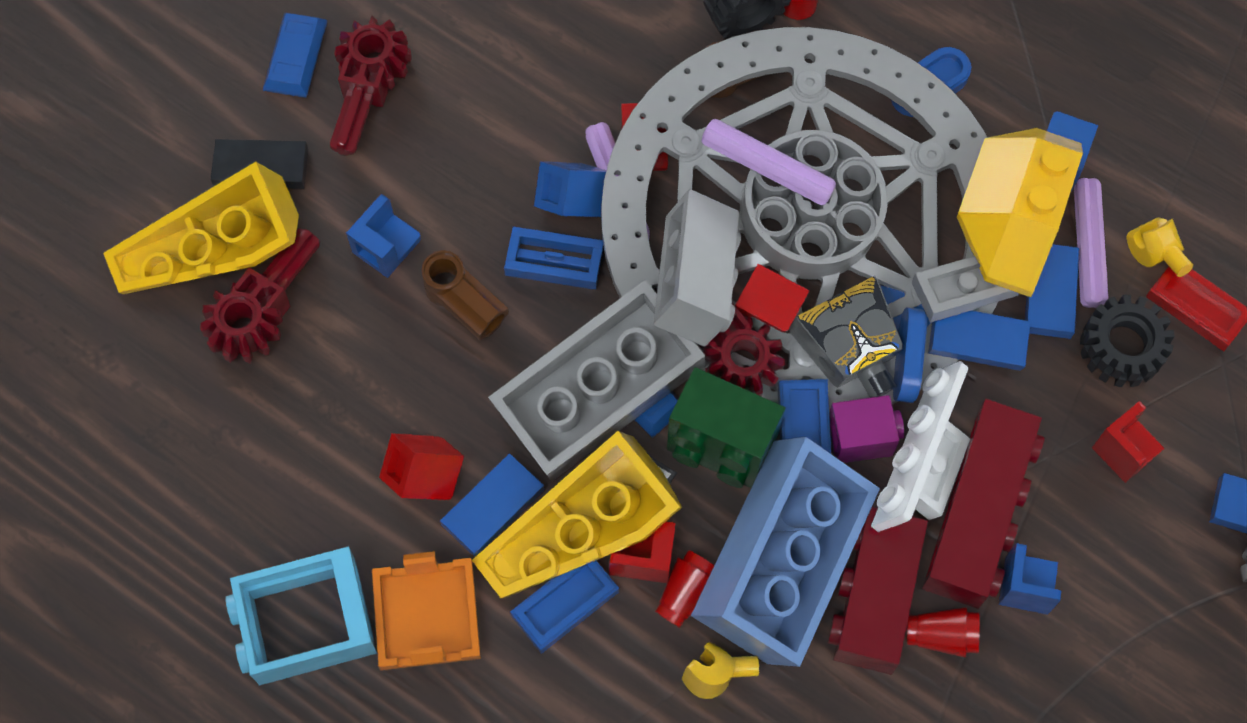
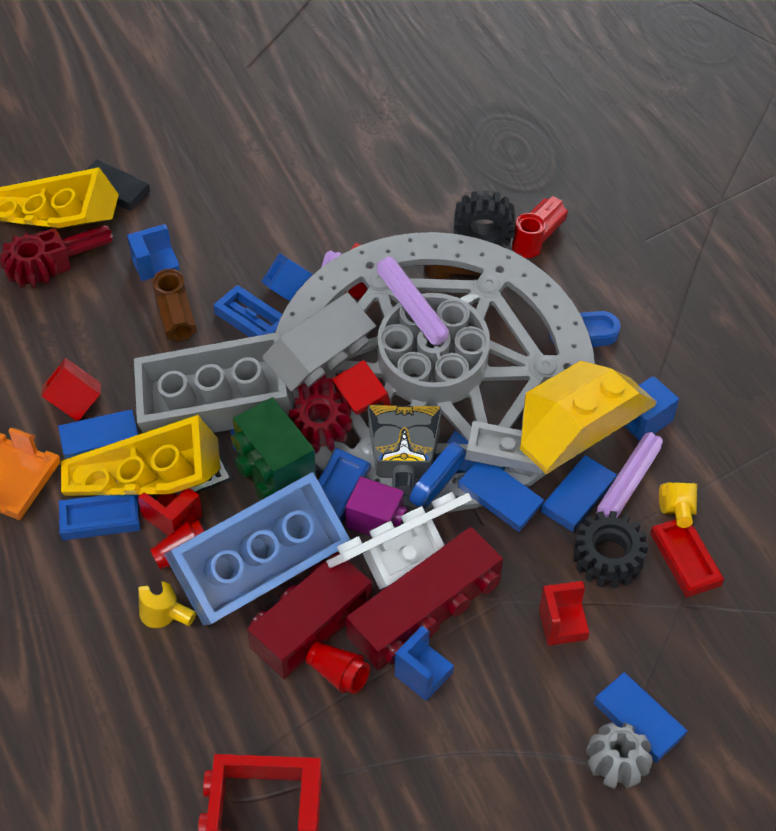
camera: 30 degrees right, 15 degrees down
(295, 55) = (182, 138): blue tile -> none
(366, 79) = (214, 162): dark red gear -> none

